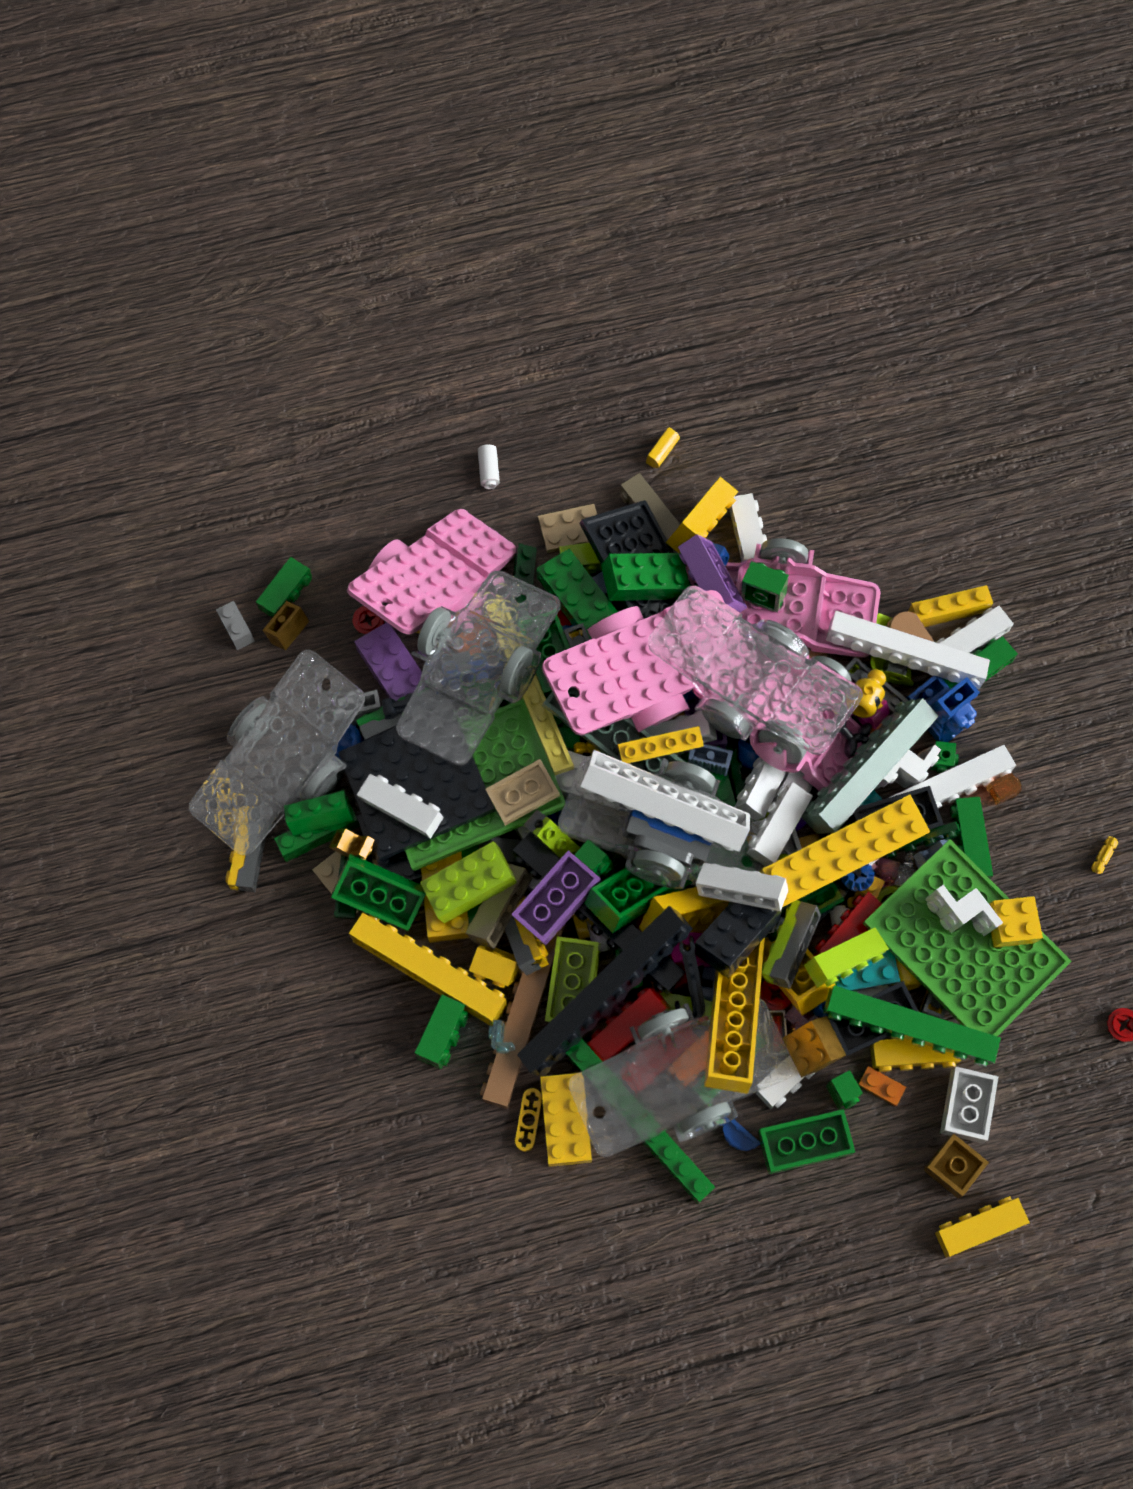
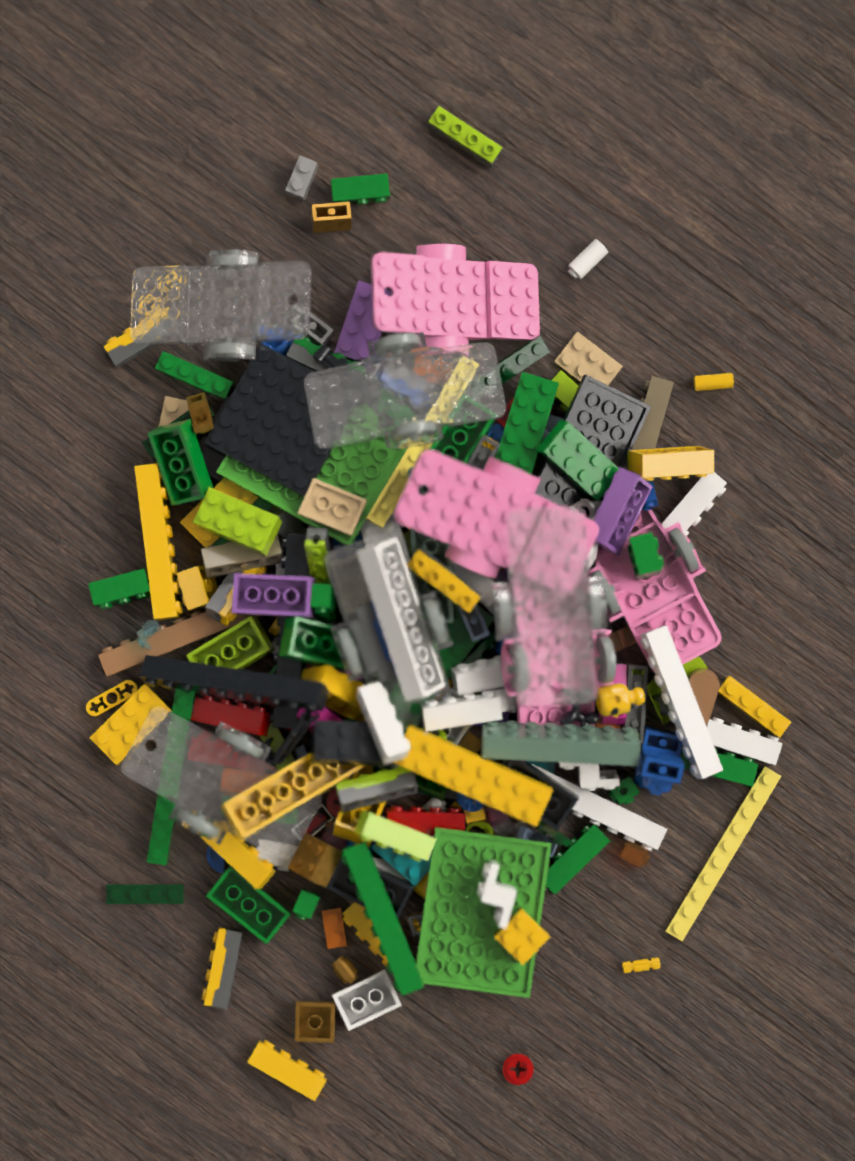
camera: 50 degrees right, 15 degrees up
(314, 481) = (465, 136): none -> lime piece
(318, 813) = (203, 369): green brick -> none
(400, 806) = (251, 426): white brick -> none
(725, 1230) = (145, 894): none -> dark green plate
(763, 1112) = (244, 859): none -> yellow brick
(846, 1211) = (223, 968): none -> piece
(927, 1104) = (345, 970): none -> pearl gold brick
(1057, 724) = (723, 853): none -> light yellow plate

